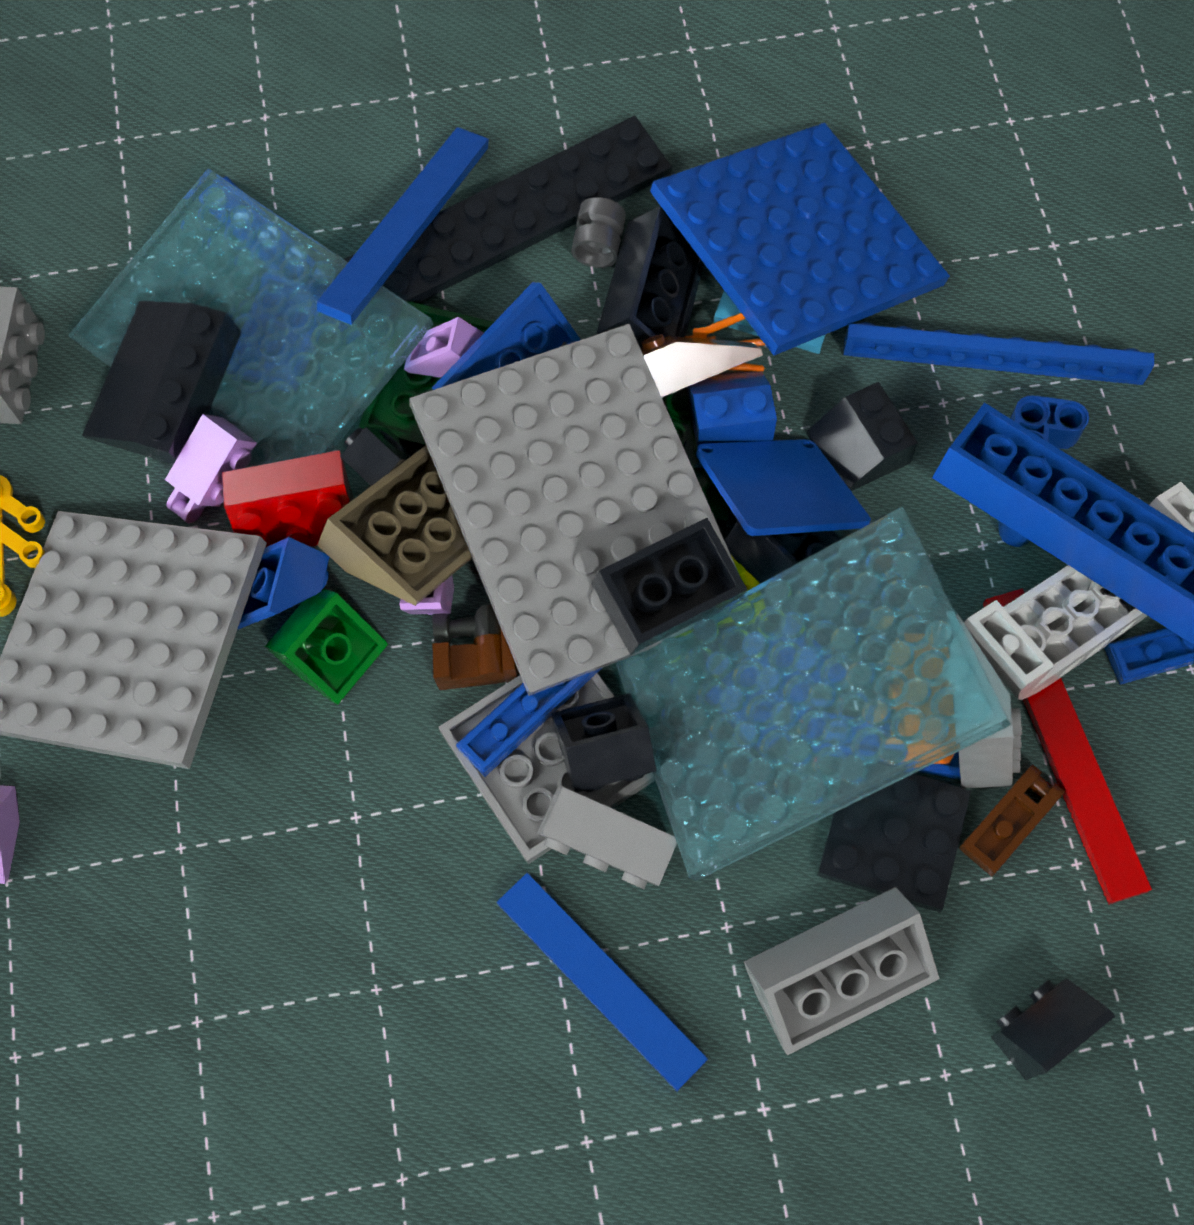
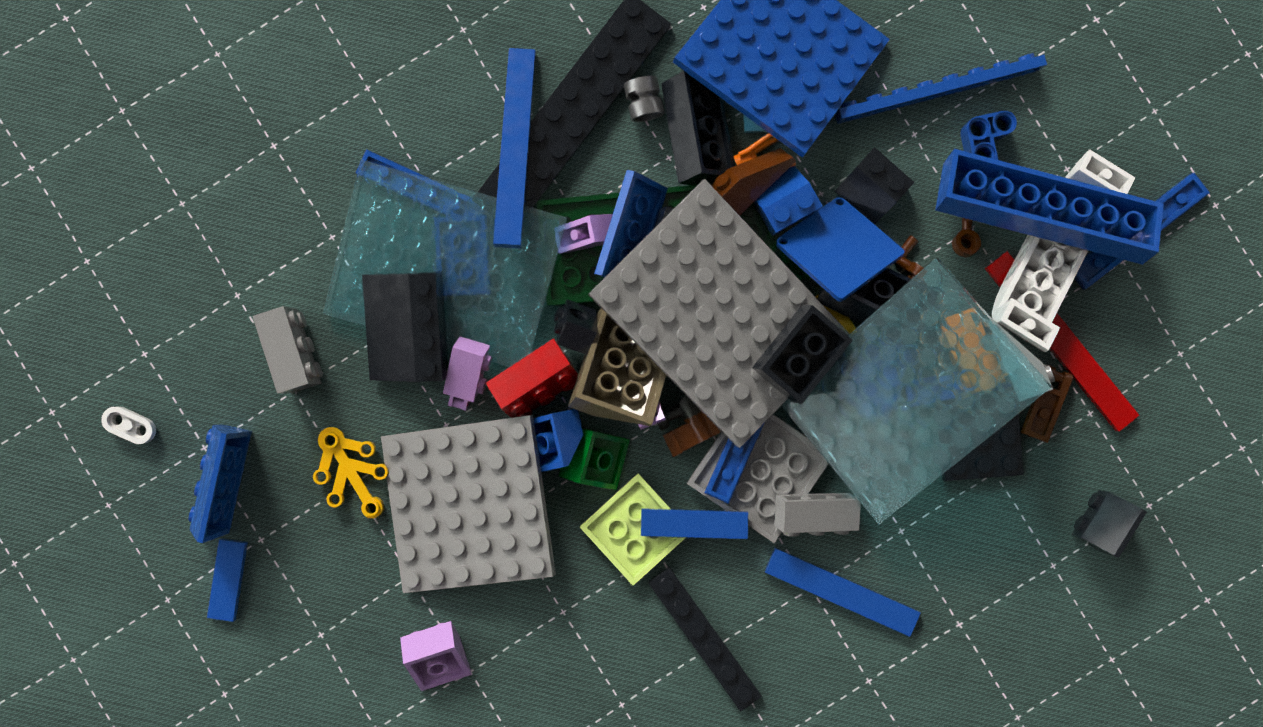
camera: 25 degrees left, 20 degrees up
(337, 765) = (617, 530): none -> yellowish green plate
(365, 971) = (704, 638): none -> black plate
(422, 783) = (694, 523): none -> blue tile
(604, 743) = (793, 457): black slope -> none
(842, 969) = (978, 532): light grey slope -> none
(967, 553) = (968, 237): none -> reddish brown plate

